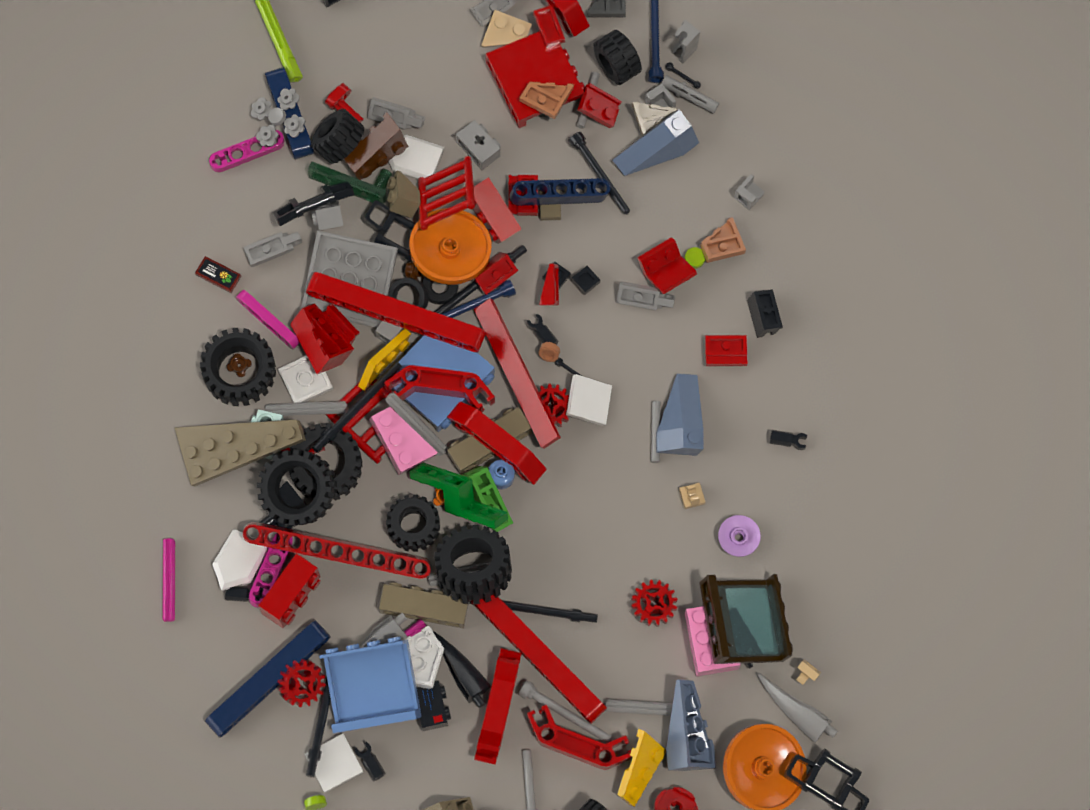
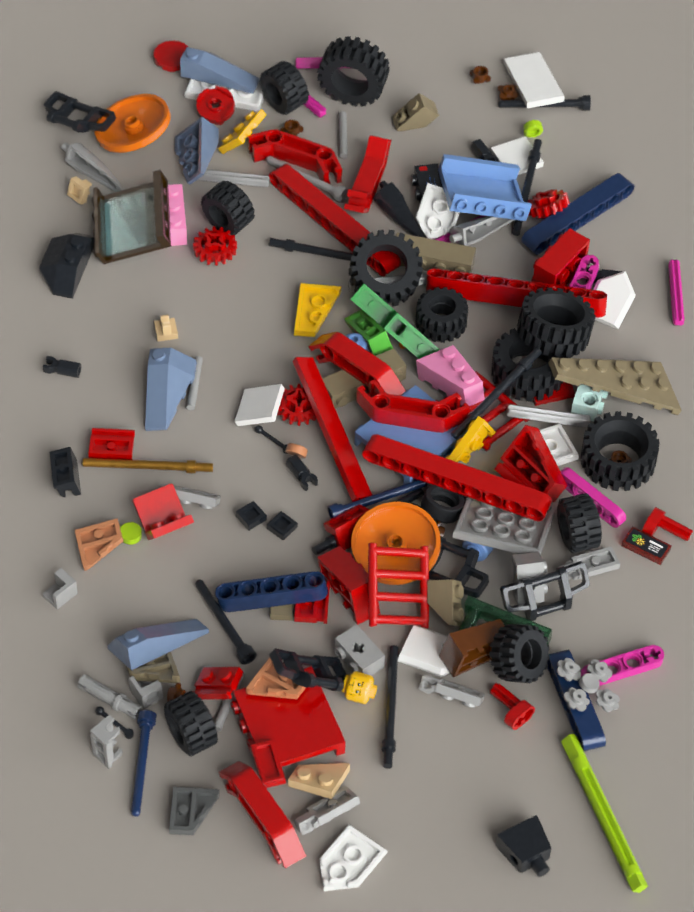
camera: 175 degrees left, 20 degrees down
(205, 299) = (658, 519): none -> red piece
(280, 274) = (579, 523): none -> black tyre
(416, 423) = (437, 384): light grey axle -> none
(449, 67) = (388, 742): none -> black bar
(476, 109) = (359, 687): none -> yellow head
(505, 112) = (294, 670): none -> black bar
(545, 530) = (313, 307): none -> yellow wing
(550, 290) = (290, 501): red slope -> none
(586, 779) = (292, 127): none -> reddish brown plate
(632, 95) = (174, 692): none -> reddish brown plate
(645, 639) = (227, 207): none -> black tyre
(648, 332) = (189, 466): none -> pearl gold bar
(741, 526) = (125, 290): lavender dish -> none
(806, 576) = (66, 262): none -> black wedge

